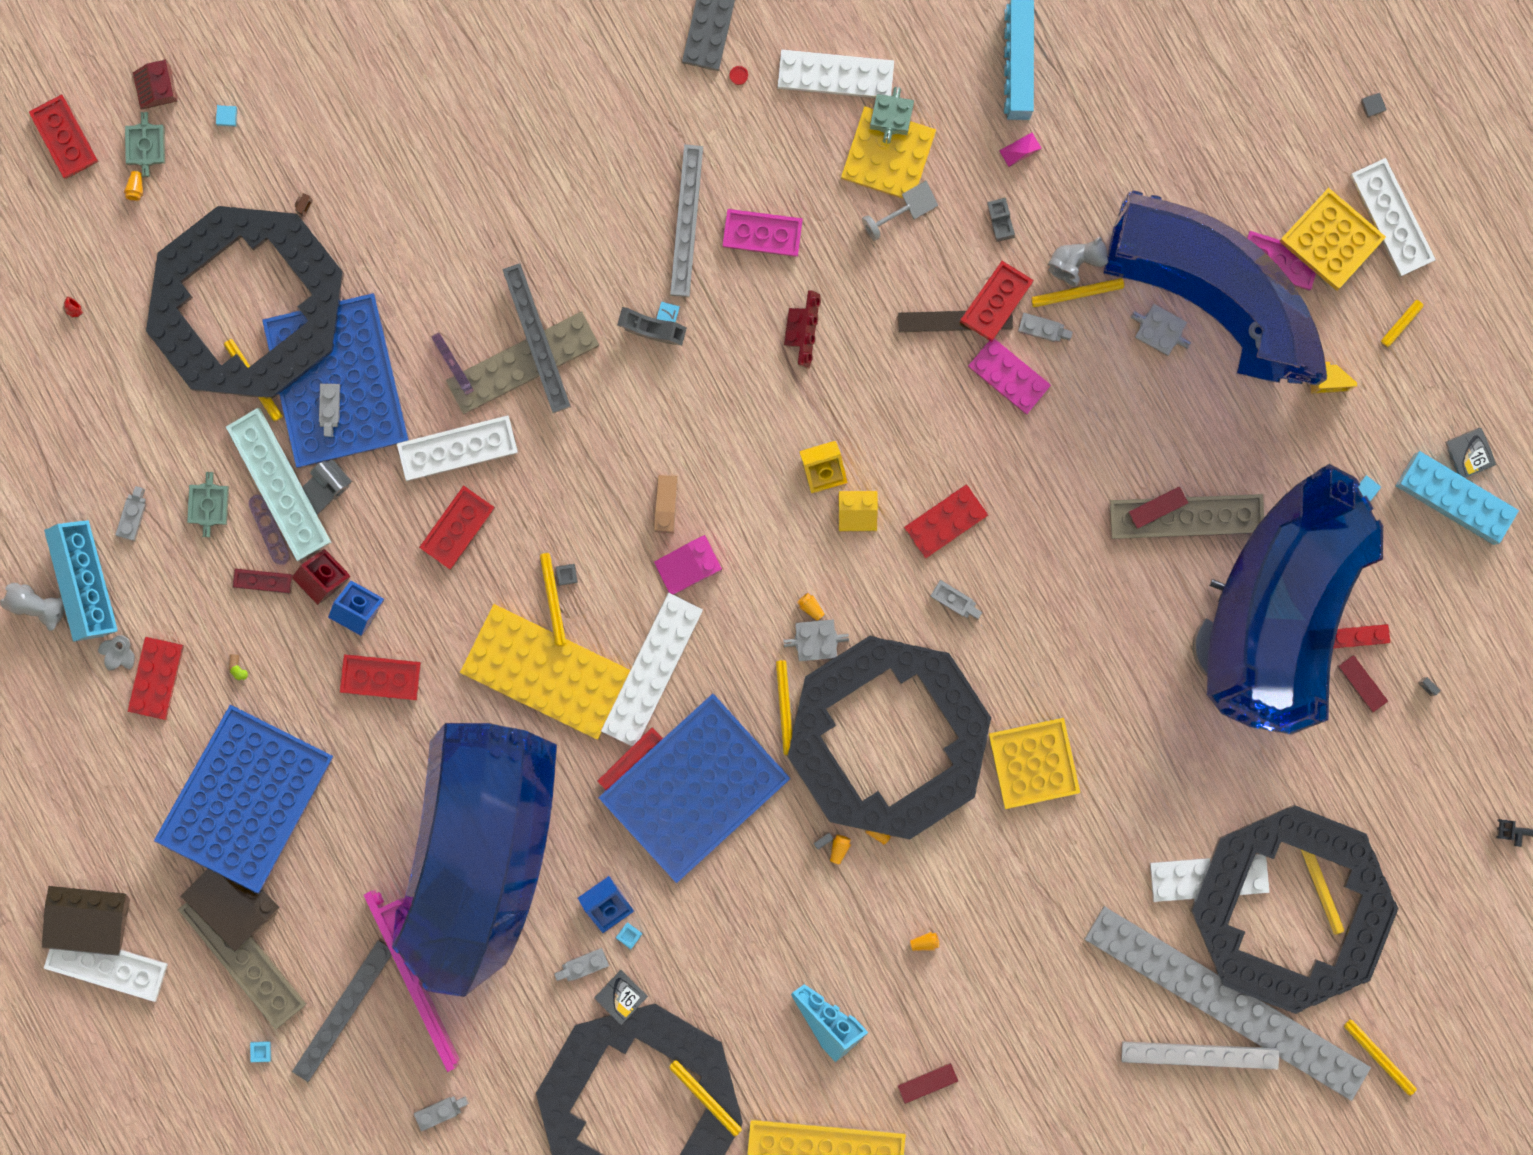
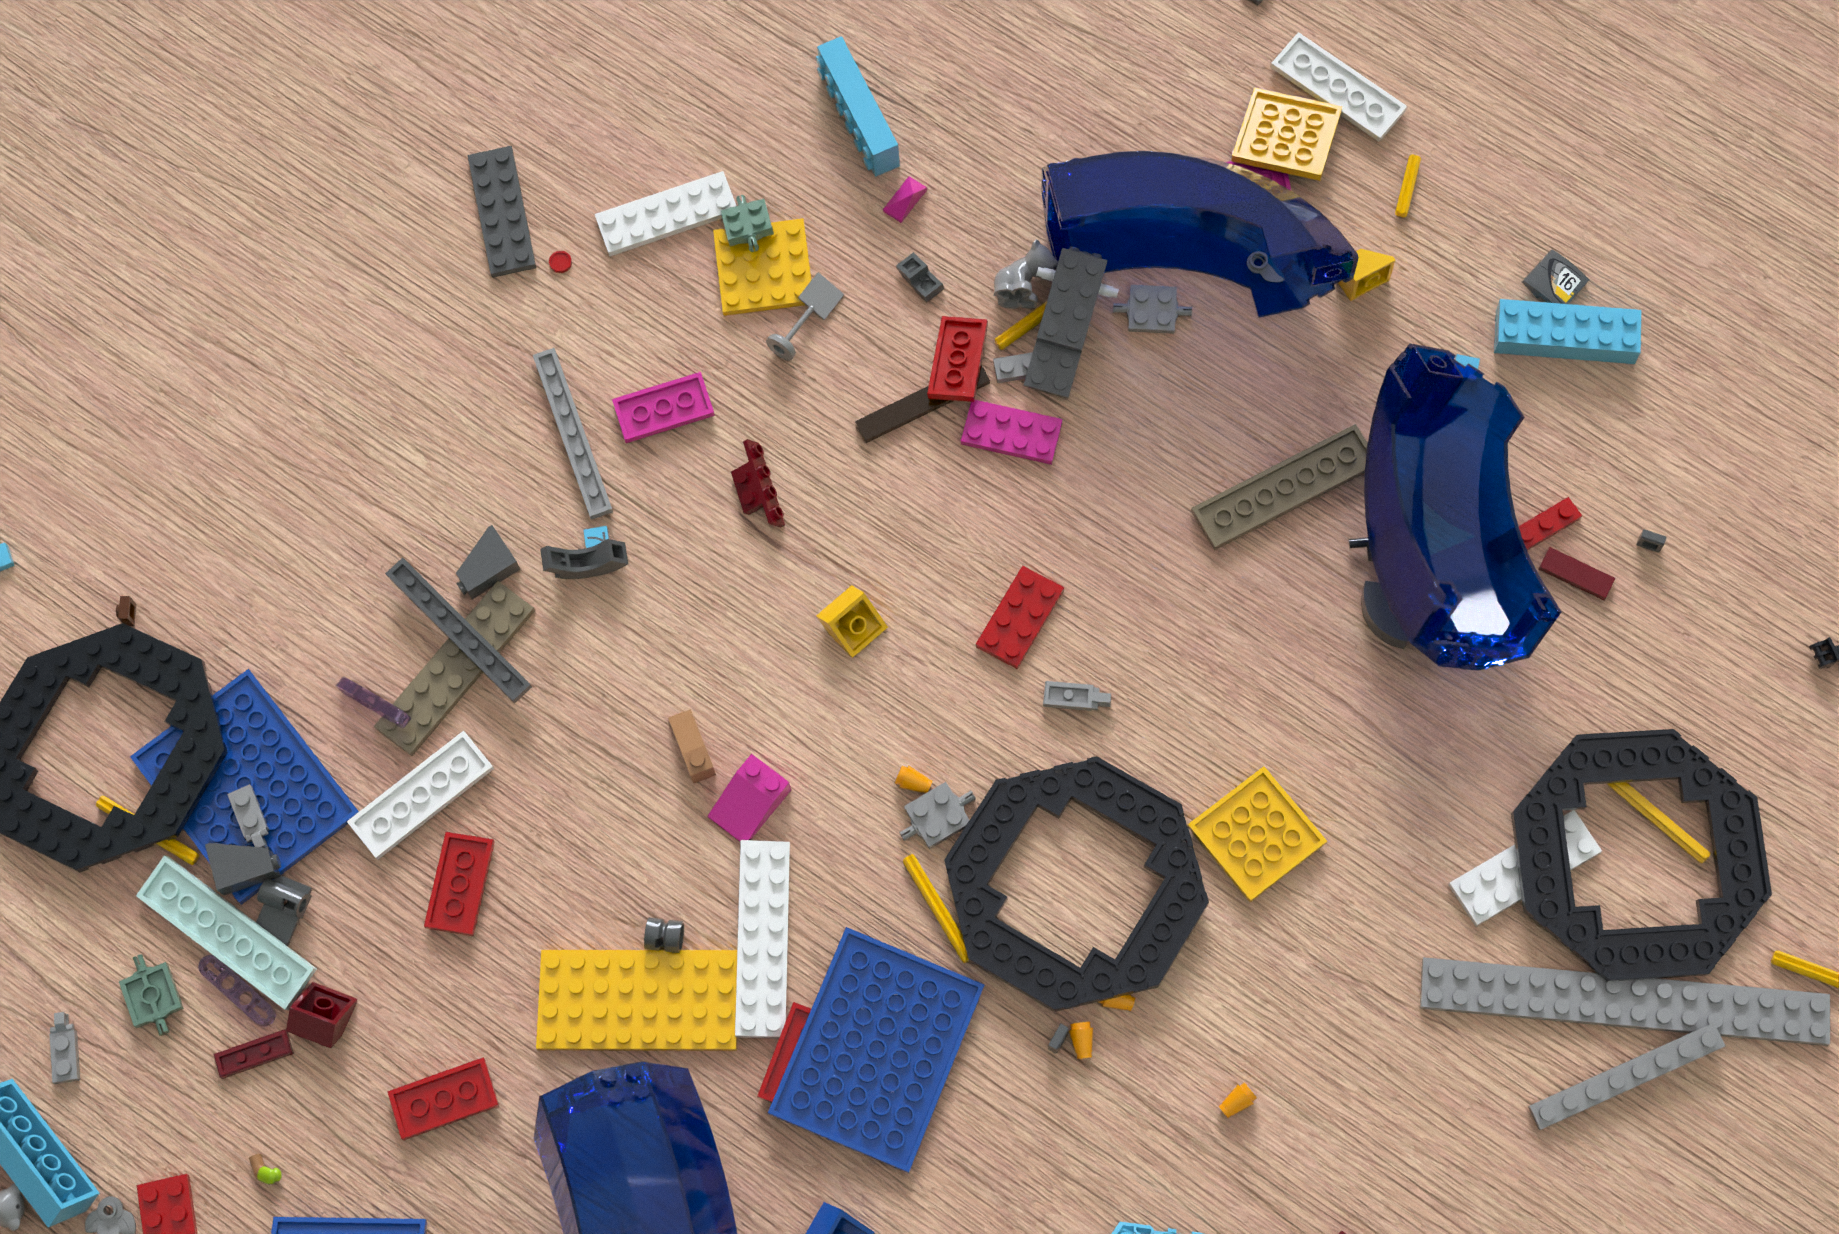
camera: 15 degrees left, 15 degrees down
(307, 443) = (241, 866): none -> dark grey slope
(355, 608) = (378, 1032): blue slope -> none
(552, 599) = (609, 911): yellow axle -> none
(566, 574) = (612, 878): dark grey tile -> none
(578, 295) = (486, 565): none -> dark grey slope
(584, 635) = (664, 935): none -> dark grey wheel
(858, 510) = (914, 649): yellow slope -> none
(1091, 312) = (1066, 319): none -> dark grey piece
(1158, 507) = (1248, 490): dark red tile -> none

